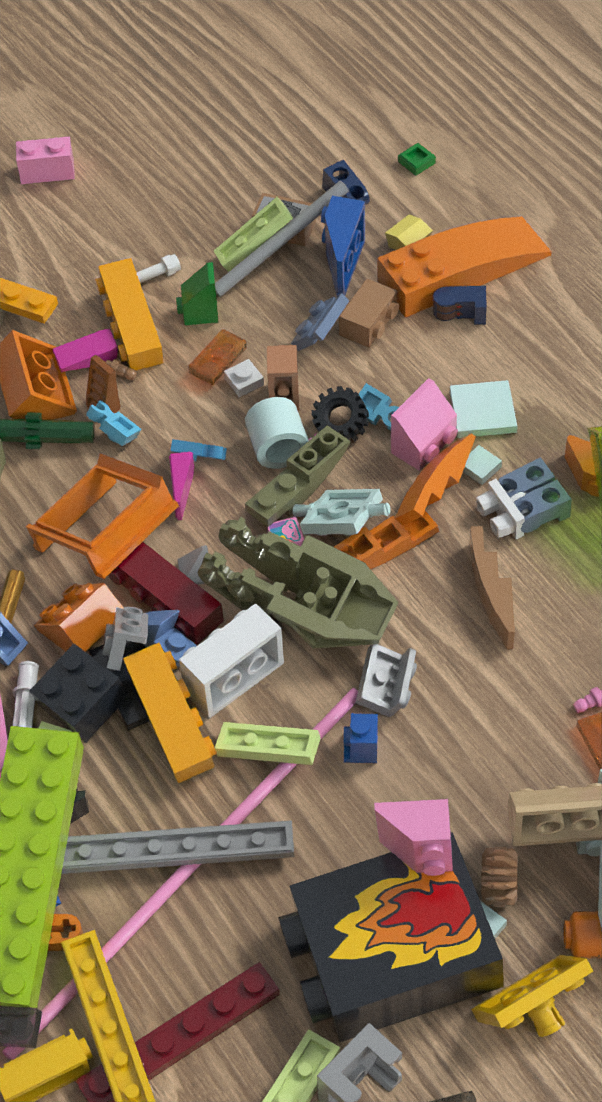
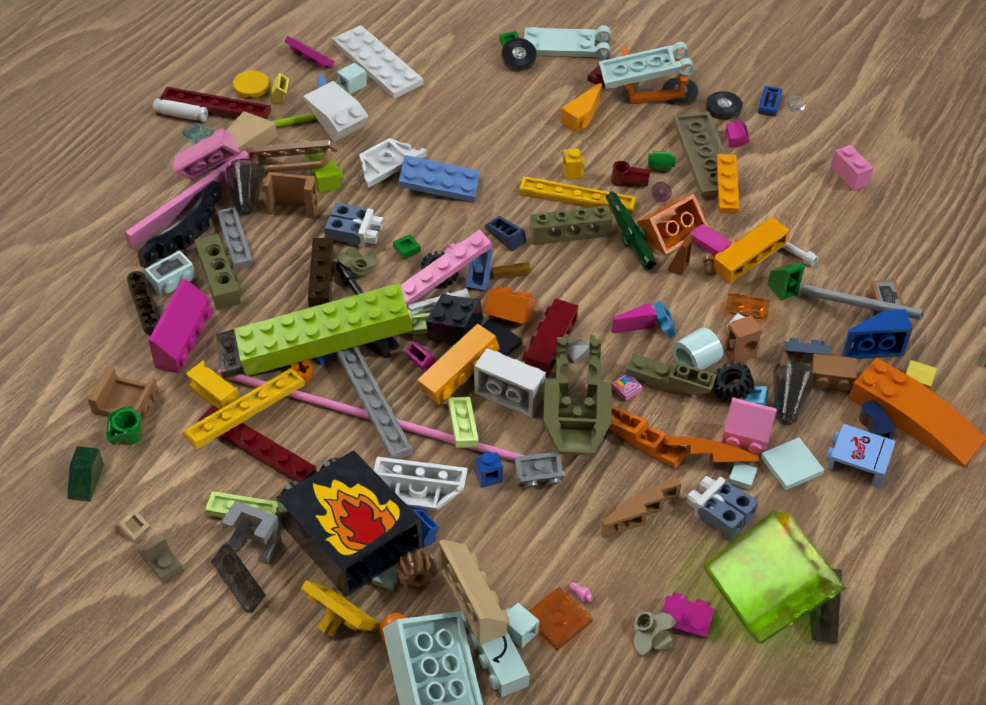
camera: 65 degrees right, 5 degrees down
(116, 426) = (659, 273): medium azure plate -> none
(116, 755) = (416, 349): none -> dark pink piece
(124, 532) = (577, 297): orange piece -> none
(128, 625) = (496, 319): light grey bracket -> none
(162, 630) = (516, 344): medium blue slope -> none
(253, 234) = (857, 287): yellowish green plate -> none
(341, 511) = (653, 404): light aqua plate -> none
(348, 177) = (938, 326): dark blue leg -> none
(352, 827) = (421, 483): none -> white wedge
(384, 362) = (791, 390): none -> clear smoke cone
(417, 833) = (398, 493): bright pink slope -> none
(501, 334) = (861, 451): none -> light blue panel

